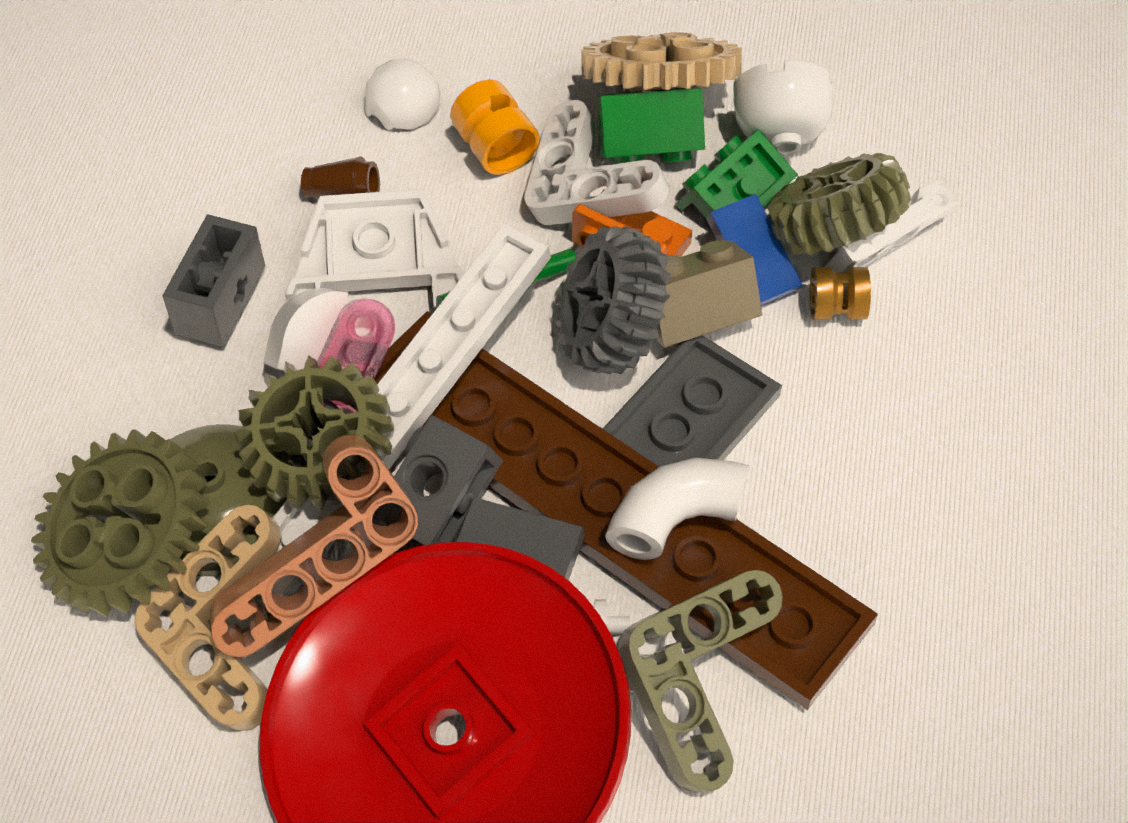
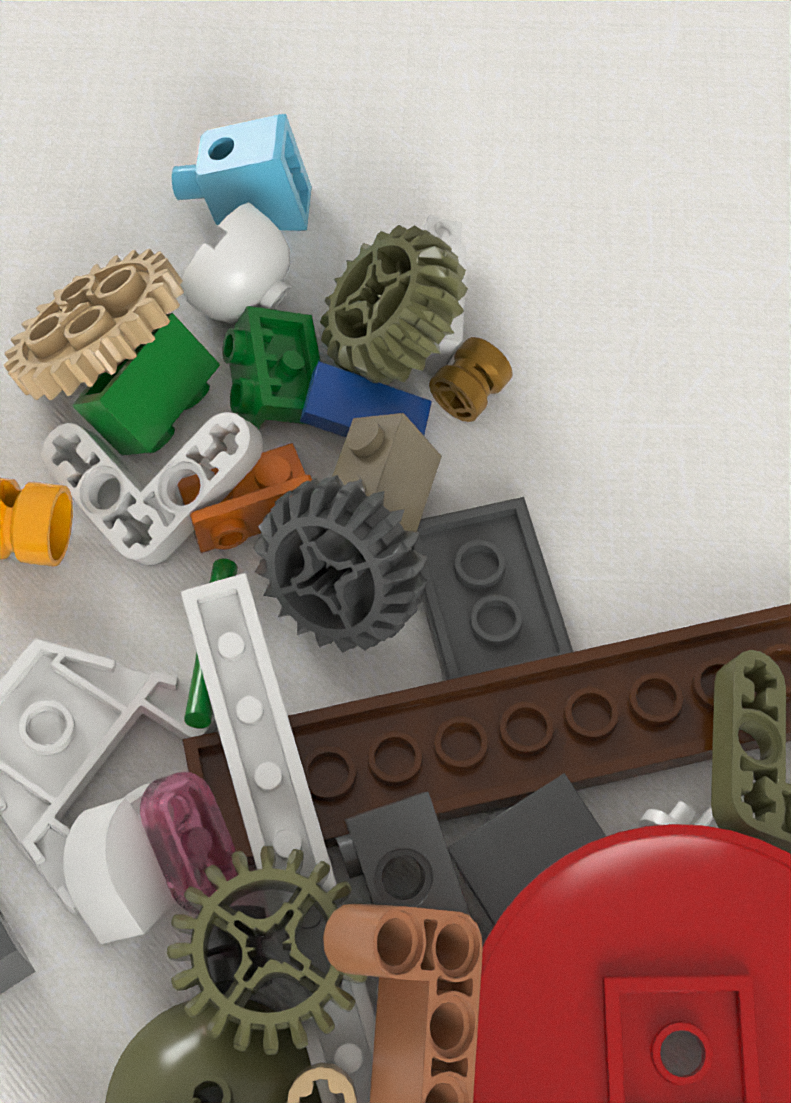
camera: 50 degrees left, 5 degrees up
(671, 496) = (595, 667): white cylinder -> none
(866, 67) = (253, 165): none -> medium azure torso

